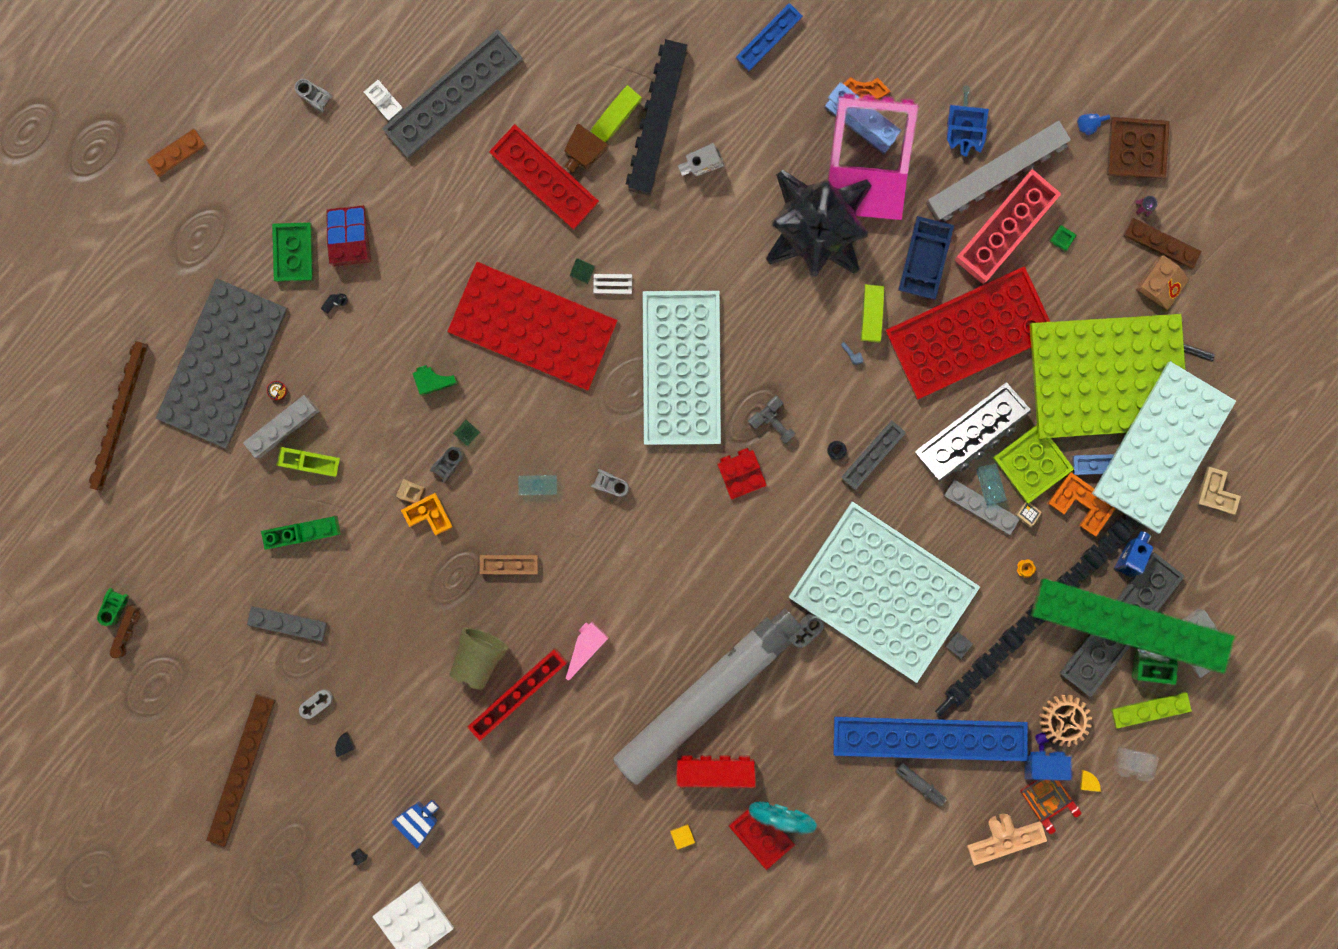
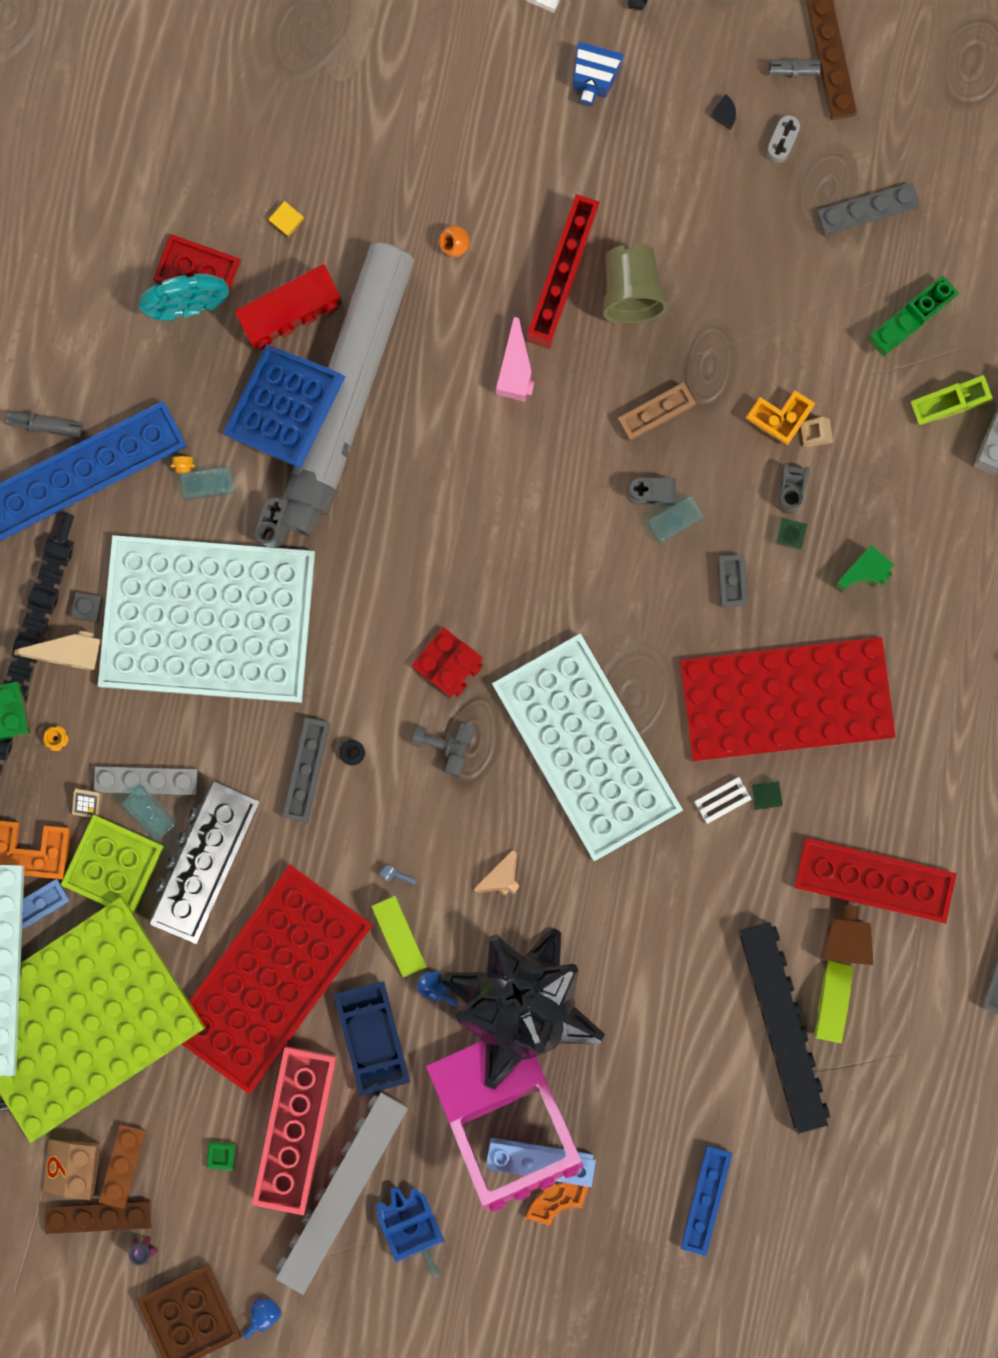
camera: 150 degrees right, 5 degrees down
(279, 749) = (794, 67): none -> dark grey pin
(523, 423) = (732, 581): none -> dark grey plate
(538, 510) = (657, 491): none -> dark grey piece
(578, 756) = (454, 241): none -> orange piece
(609, 483) = (594, 566): light grey piece -> none
(709, 157) = (693, 1010): light grey torso -> none
(756, 705) = (284, 405): none -> blue plate
(785, 314) = (501, 877): none -> light nougat piece
(834, 683) = (207, 483): none -> clear light blue plate
(843, 705) = (182, 464): none -> light orange plate
(869, 268) = (431, 987): none -> blue piece
(987, 621) = (72, 651): none -> tan slope
(1130, 265) = (122, 1166): none -> dark orange plate

